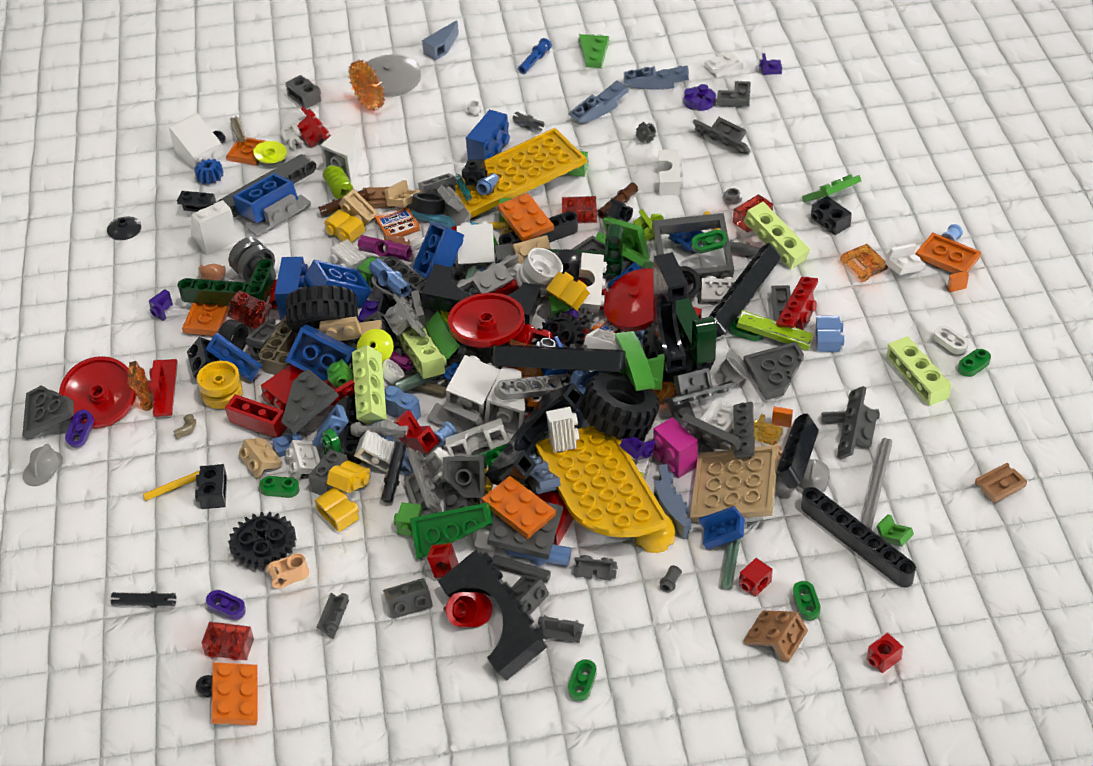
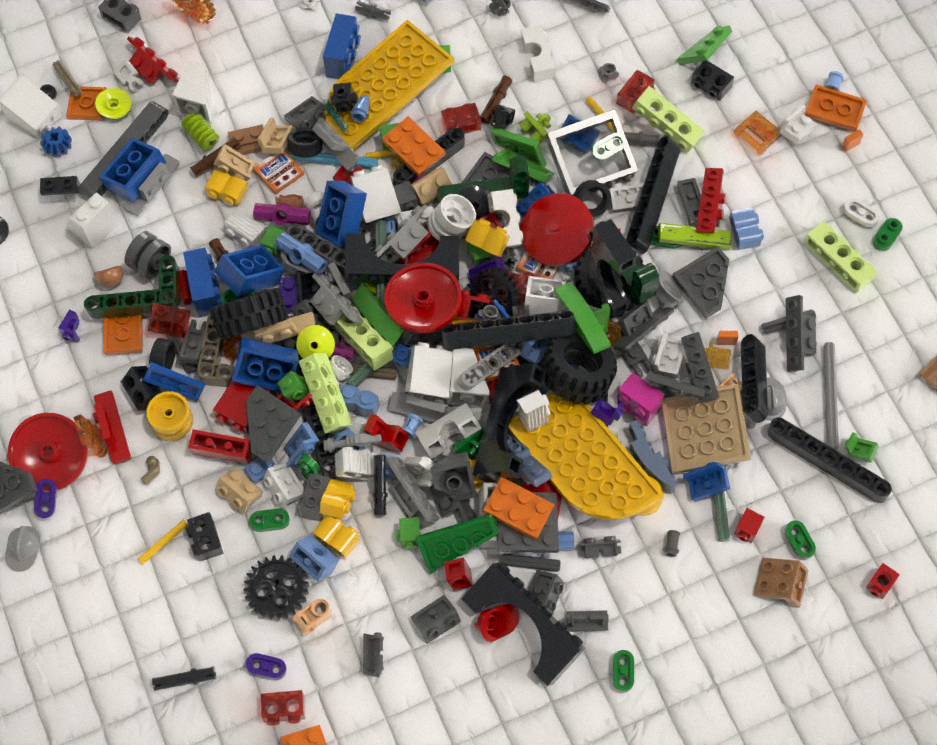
camera: 15 degrees left, 20 degrees up
(307, 521) = (314, 558): none -> medium blue brick

